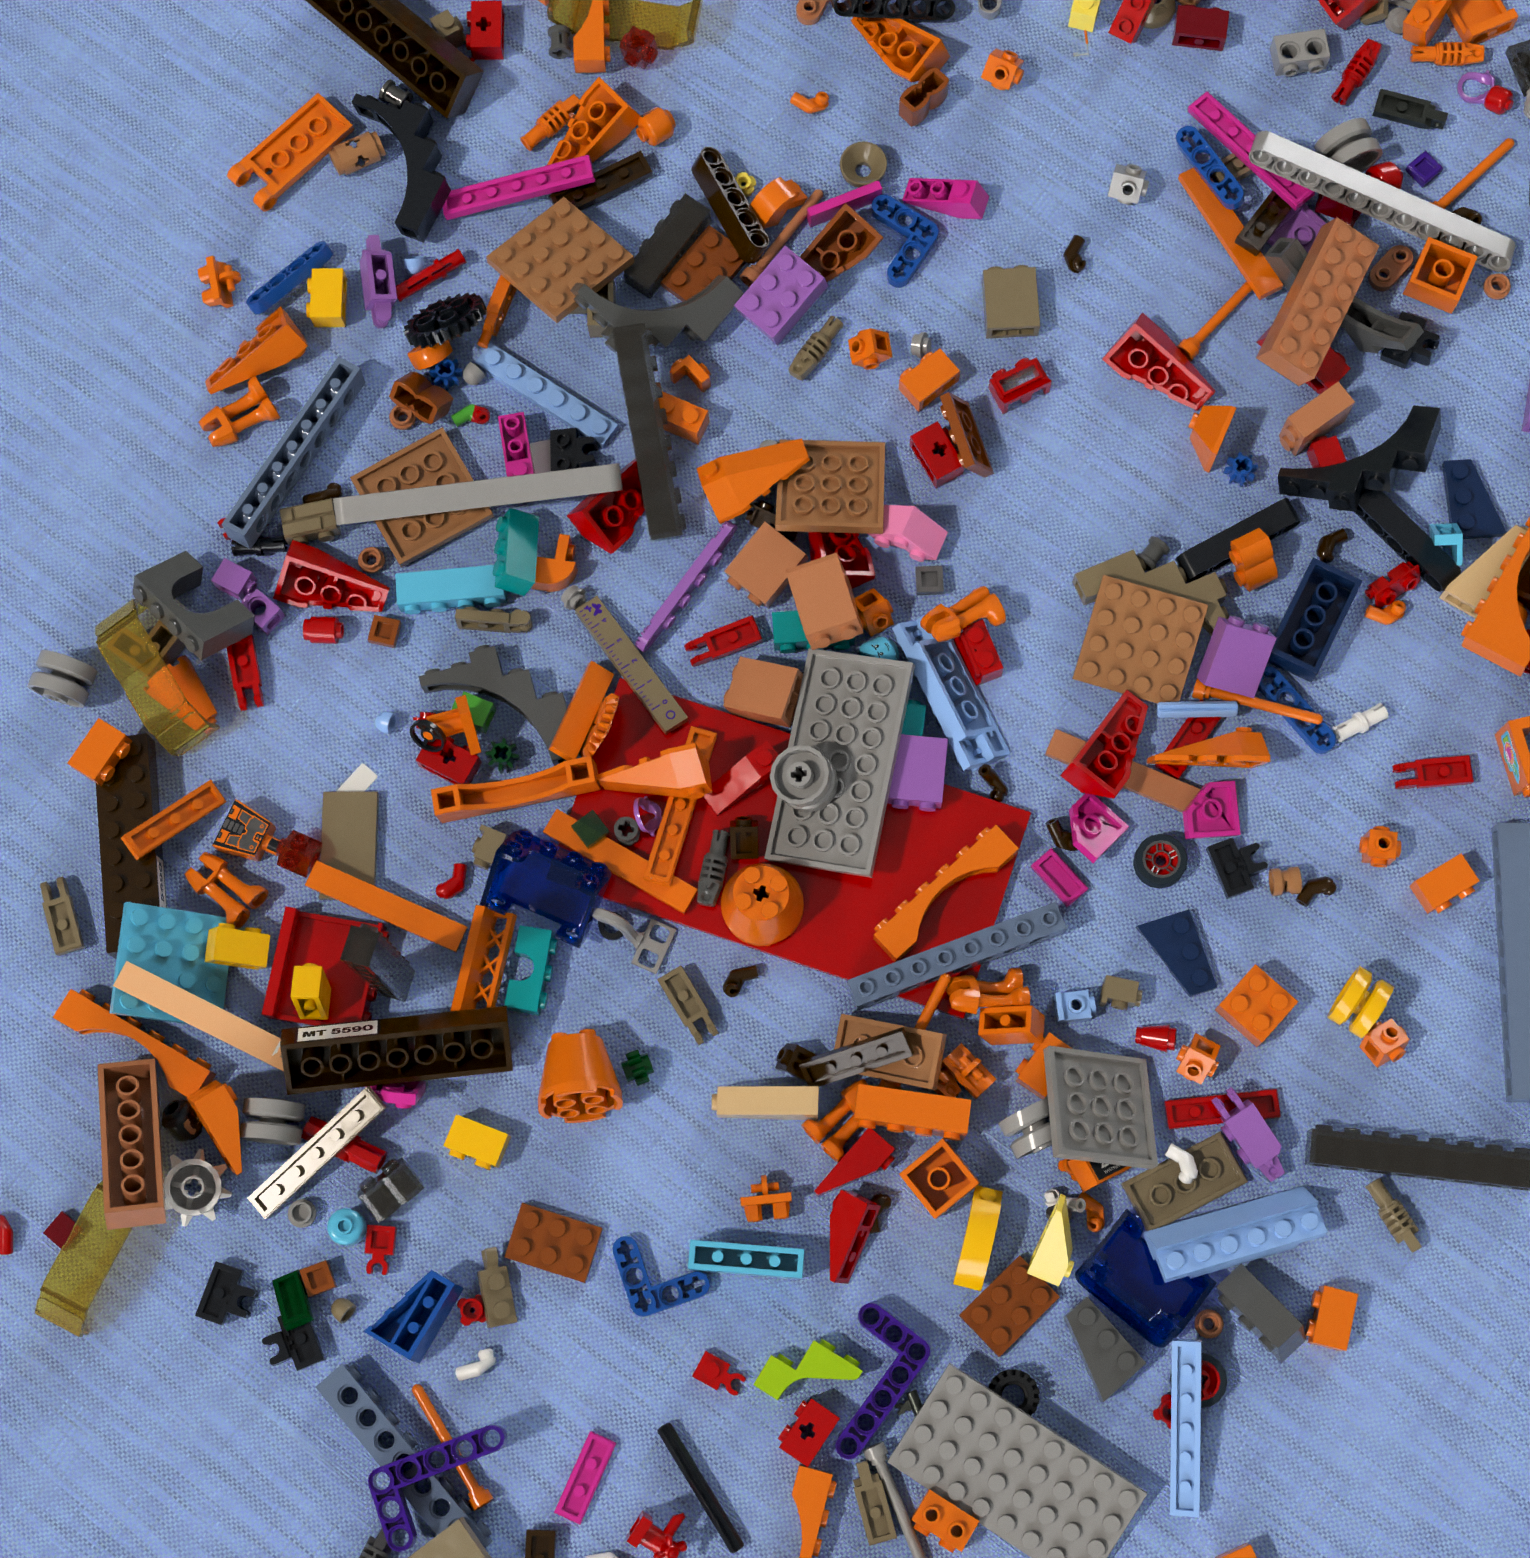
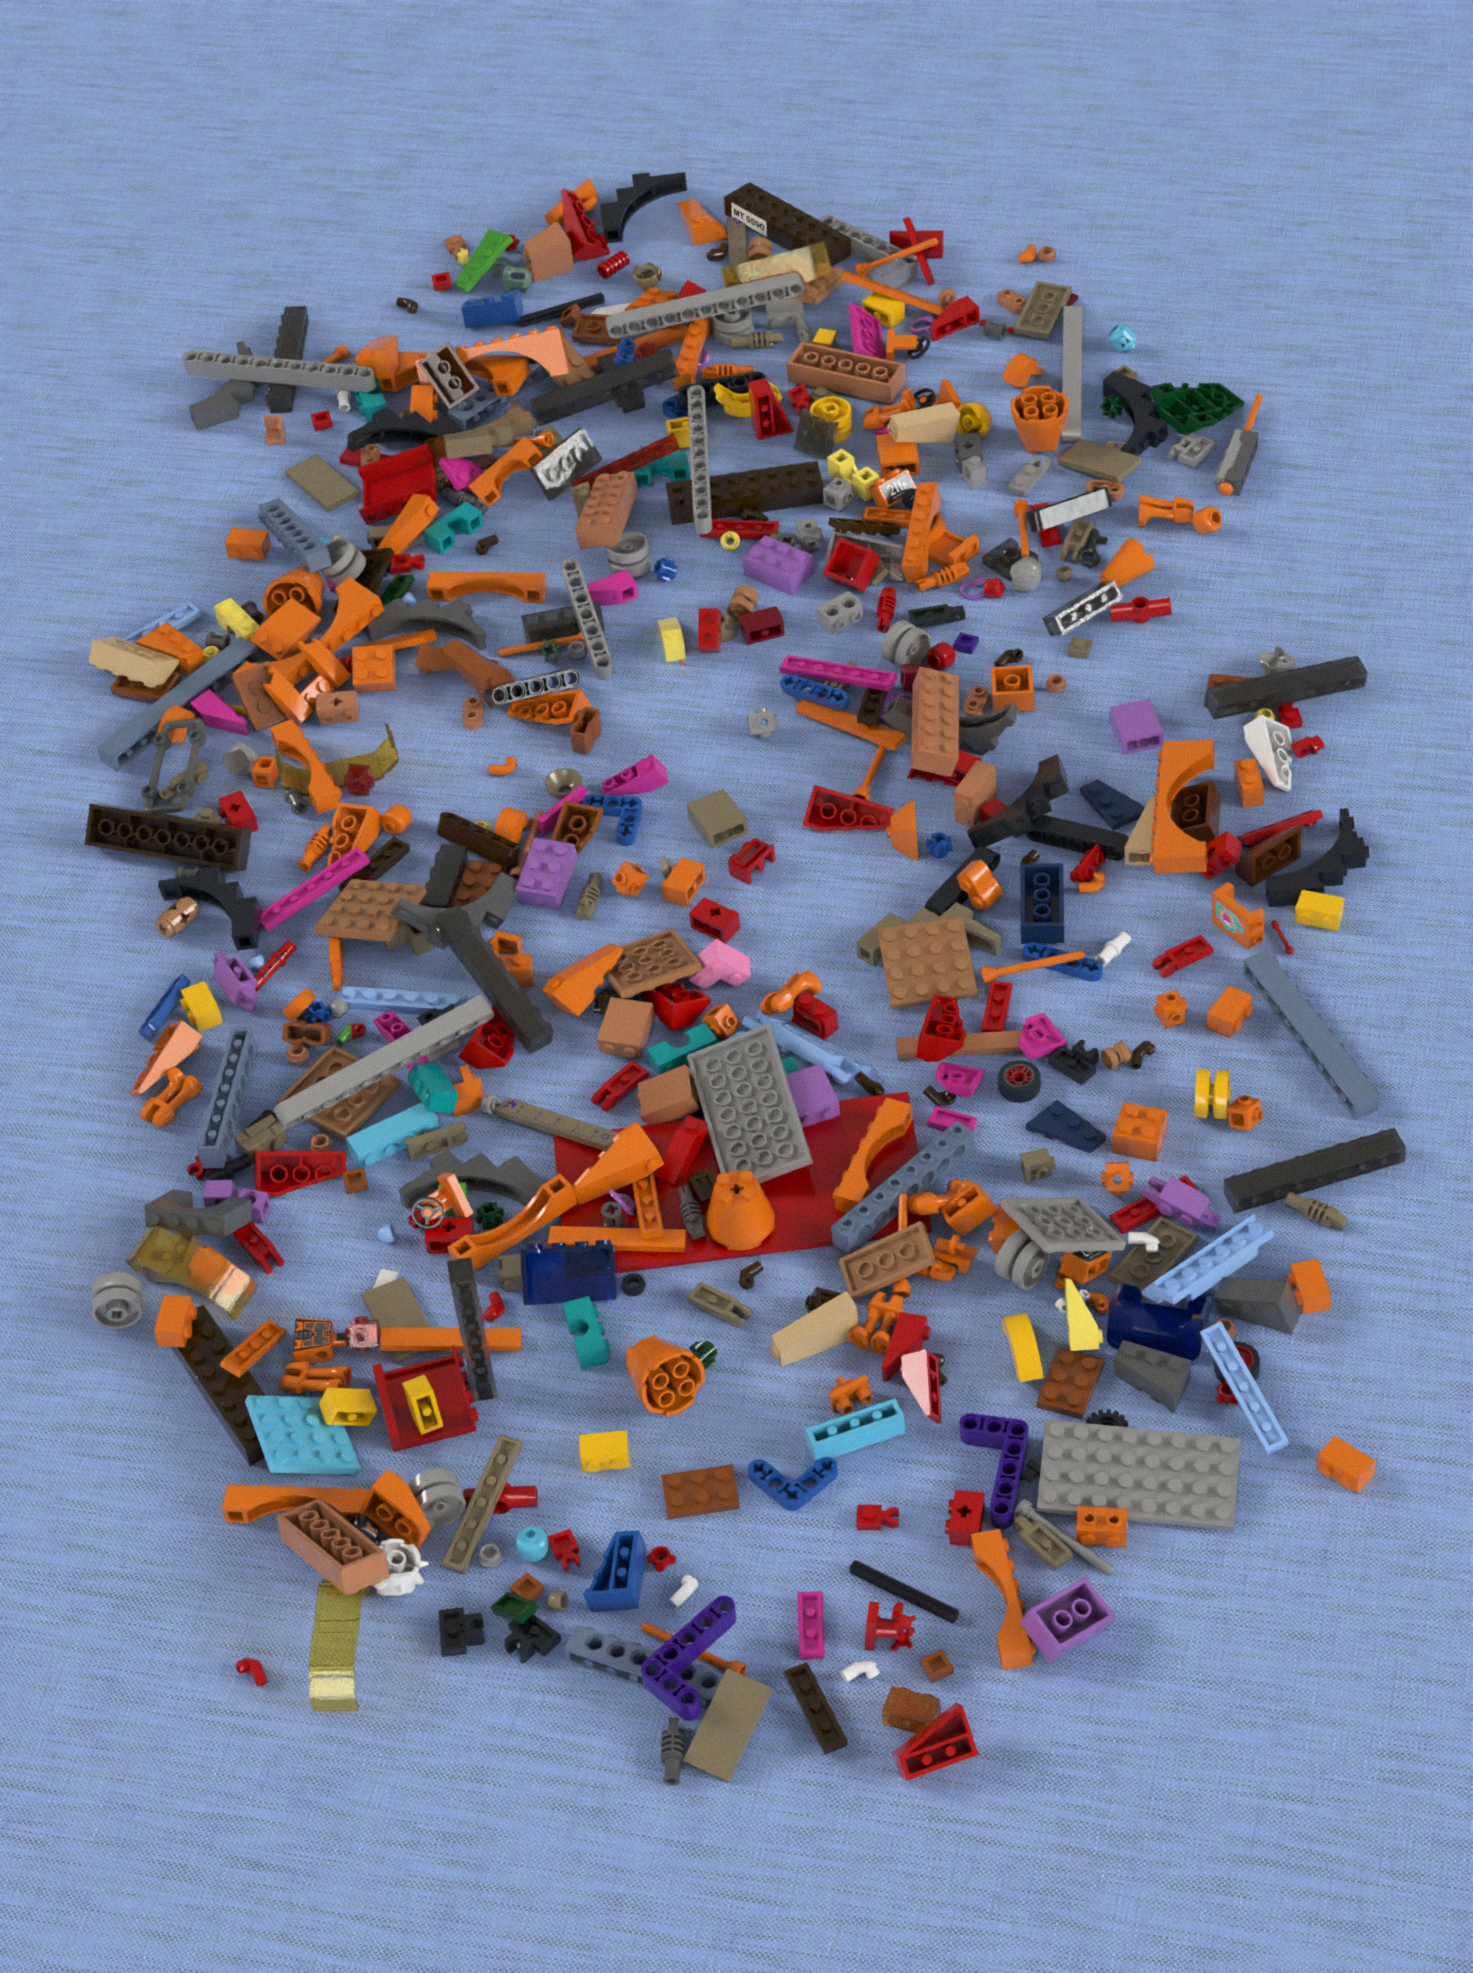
camera: 25 degrees left, 30 degrees down
(60, 1229) = (299, 1649): dark red tile -> none
(61, 918) = (194, 1454): dark tan hinge -> none
(200, 1014) = (358, 1449): light nougat tile -> none
(221, 280) = (113, 1037): orange hips -> none
(292, 150) = (124, 935): orange hinge -> none
(323, 630) = (307, 1197): red brick -> none
(389, 1189) = (553, 1505): clear smoke brick -> none
(396, 1050) = (510, 1409): dark brown brick -> none
(401, 1094) = (532, 1438): dark pink plate -> none
(445, 320) = (305, 975): black gear -> none
(476, 957) = (543, 1347): orange fence -> none
(496, 1291) = (672, 1537): dark tan plate -> none
(581, 711) = (536, 1160): orange tile -> none
(590, 829) = (583, 1224): clear green tile -> none
(600, 725) = (556, 1156): orange gear -> none
(639, 939) = (660, 1283): light grey piece -> none
(681, 595) = (572, 1066): medium lavender plate -> none
(804, 778) = (728, 1121): light grey wheel -> none
(817, 1363) = (949, 1474): lime arch -> none
(824, 601) = (682, 1017): nougat slope -> none
(857, 1058) = (868, 1266): plate -> none
(912, 1111) = (928, 1285): orange wedge -> none
(929, 580) = (752, 992): flat silver plate -> none
(939, 1178) = (971, 1321): orange brick -> none
(965, 435) = (730, 898): dark orange plate -> none
(1003, 69) = (627, 695): orange brick -> none
(1066, 1014) = (1008, 1186): light blue brick -> none
(1072, 256) = (747, 779): dark brown arm -> none
(1153, 552) = (906, 910): dark grey bush -> none
(1157, 1037) = (1080, 1180): red cone -> none
(1197, 709) = (991, 984): light blue axle -> none
(1232, 749) = (1024, 999): orange wedge -> none
(1236, 656) = (1000, 937): medium lavender brick -> none
(1380, 199) = (938, 656): light grey beam -> none
(1417, 352) = (1019, 734): black plate -> none
(1448, 535) = (1111, 816): medium azure panel -> none
(1472, 176) = (987, 660): orange piece -> none

